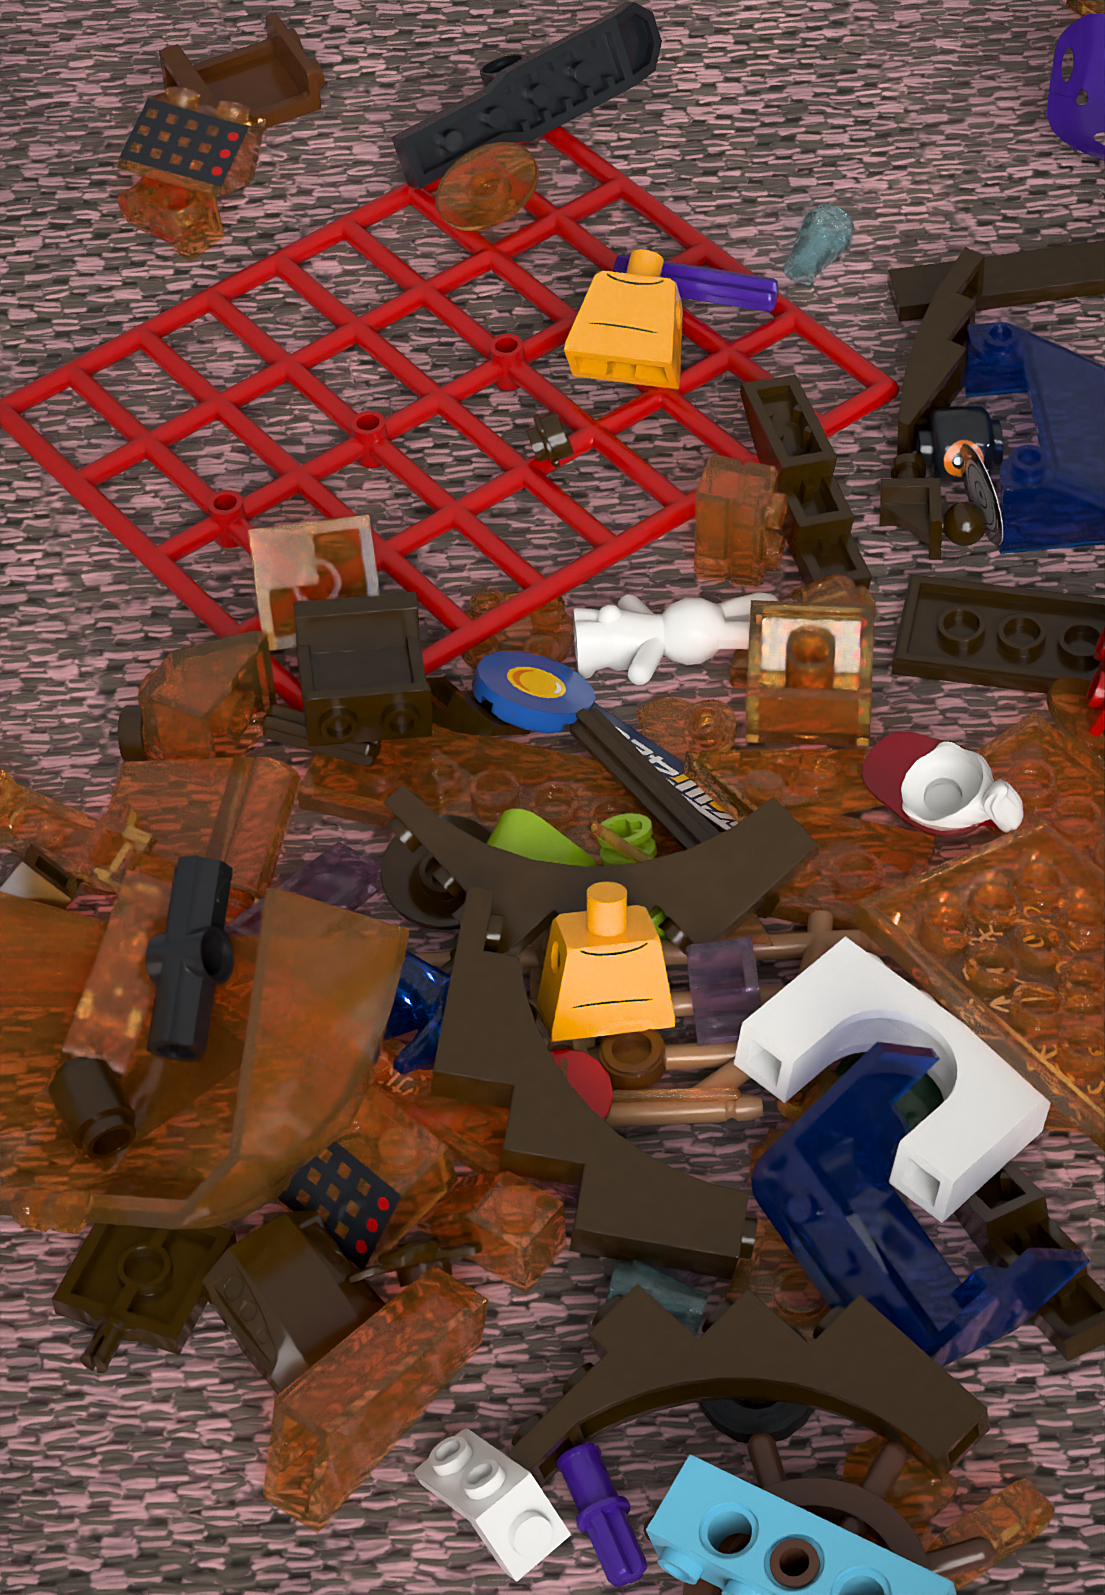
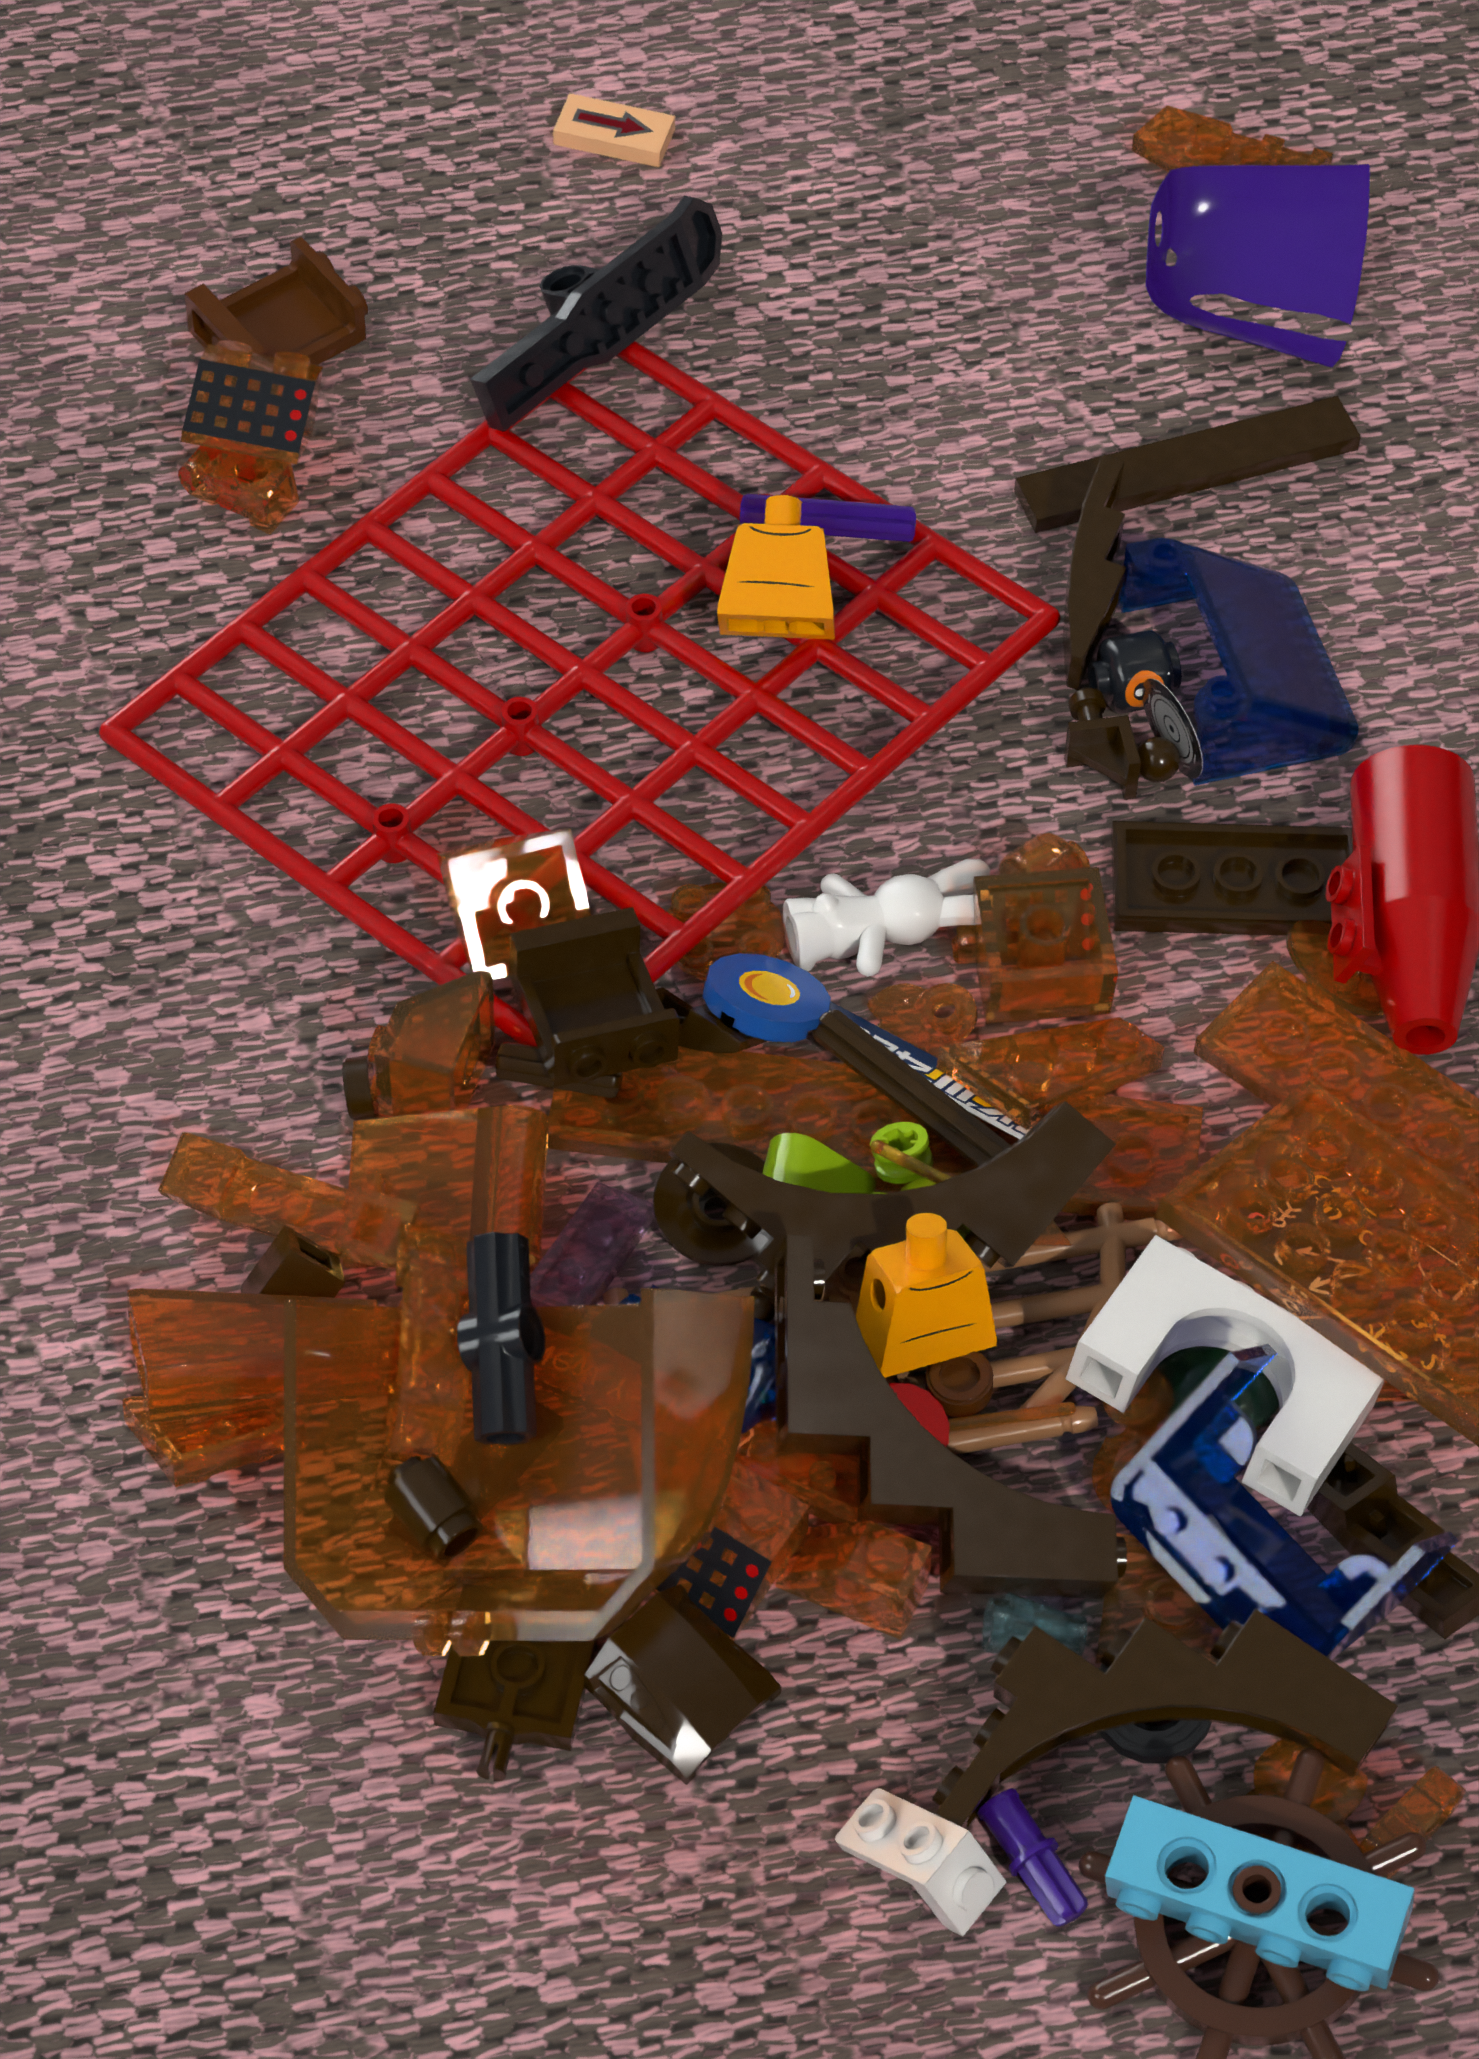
camera: 15 degrees left, 5 degrees up
(367, 1394) = (780, 1770): clear orange slope -> none
(415, 1258) = (797, 1623): dark brown plate -> none
(487, 186) = (568, 410): clear orange dish -> none
(549, 439) = (719, 713): dark brown plate -> none
(722, 988) = (1041, 1304): clear purple panel -> none
(738, 522) = (934, 787): clear orange brick -> none
(816, 512) = (985, 731): dark brown slope -> none
(820, 240) = (937, 453): clear light blue cone -> none
(939, 786) = (1203, 1057): white hair -> none

